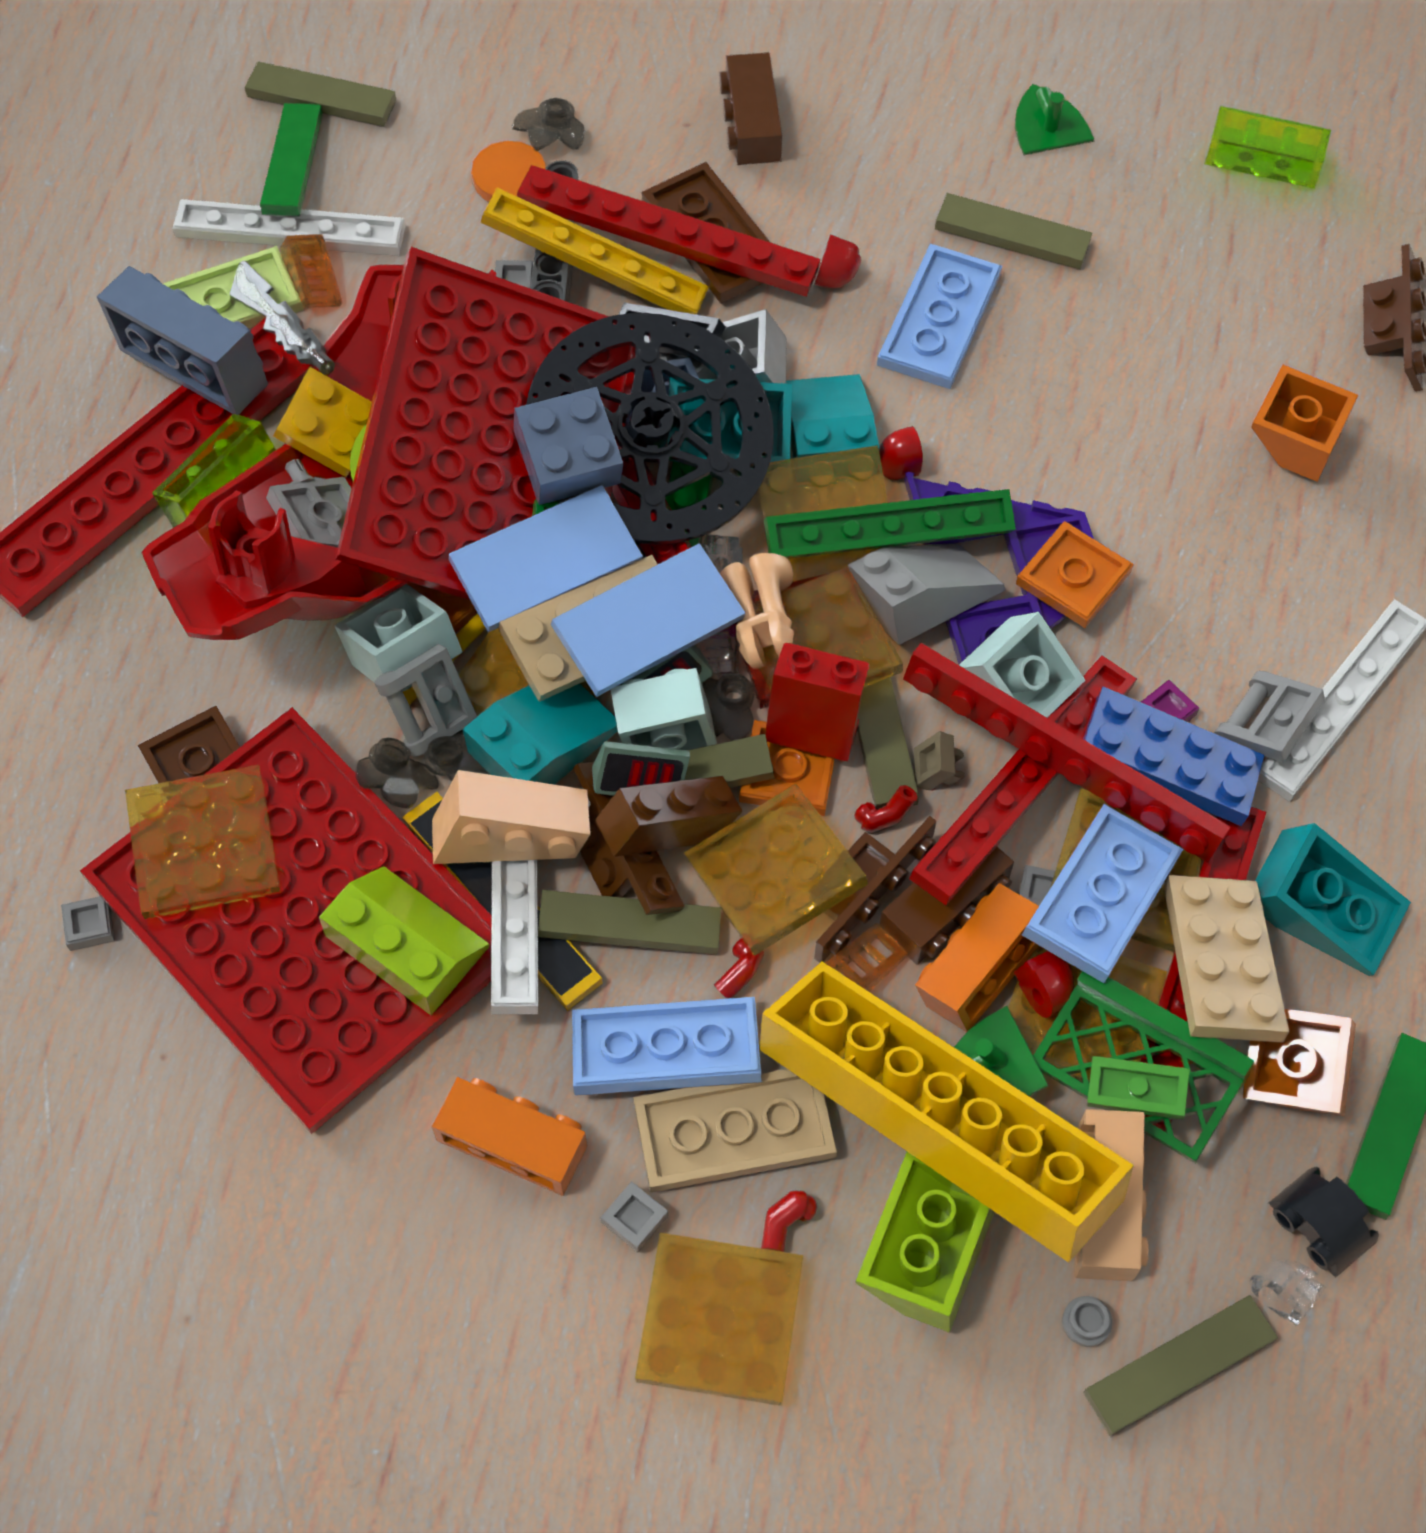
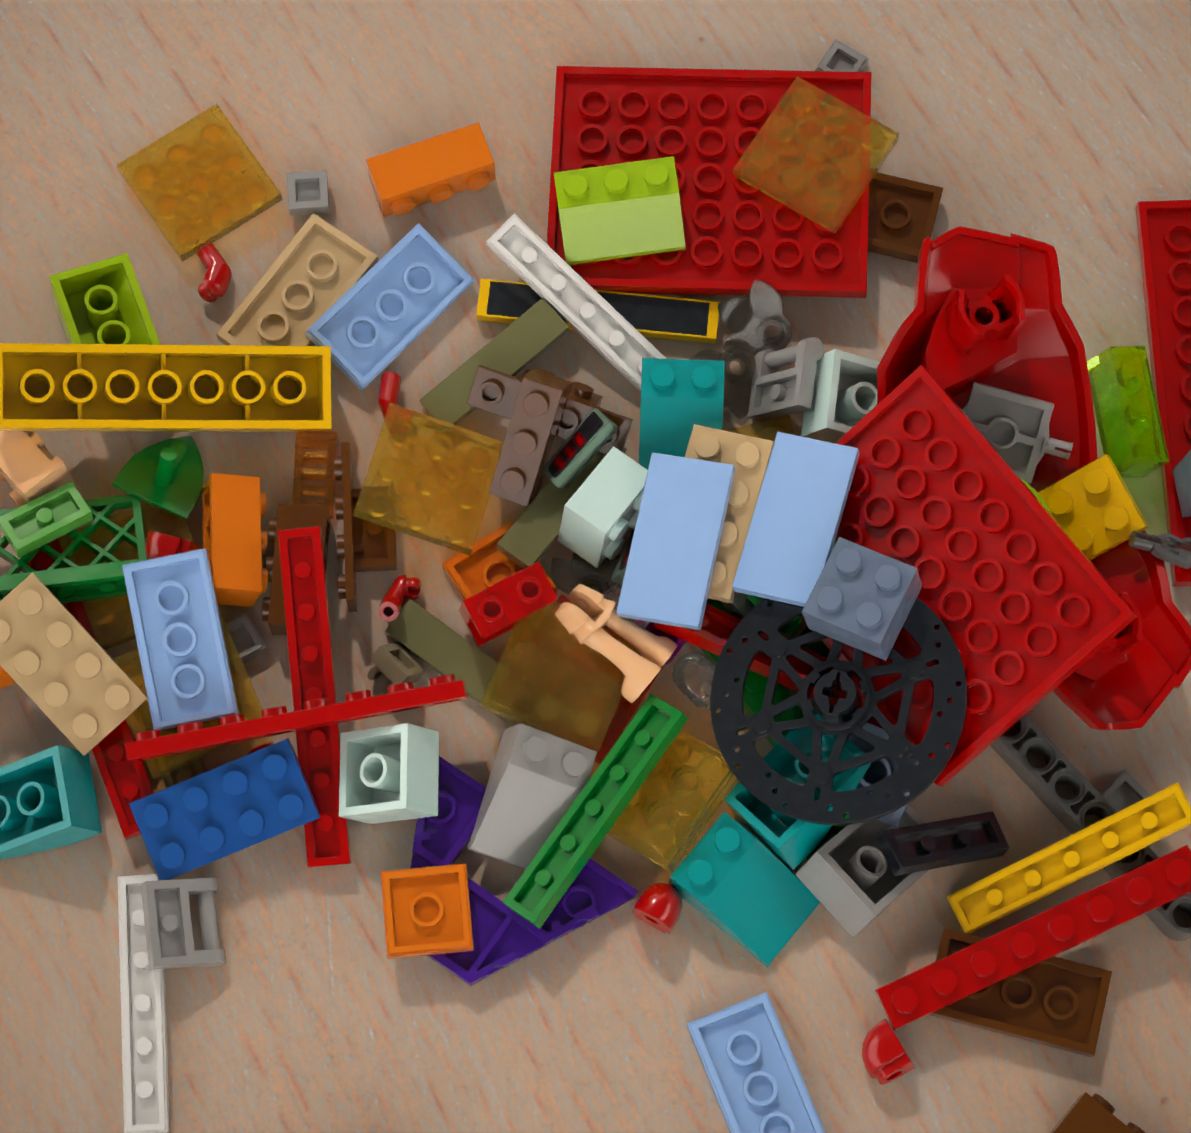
camera: 135 degrees right, 10 degrees up
(508, 820) = (625, 337): light nougat wedge -> none
(1172, 701) = (268, 873): magenta tile -> none

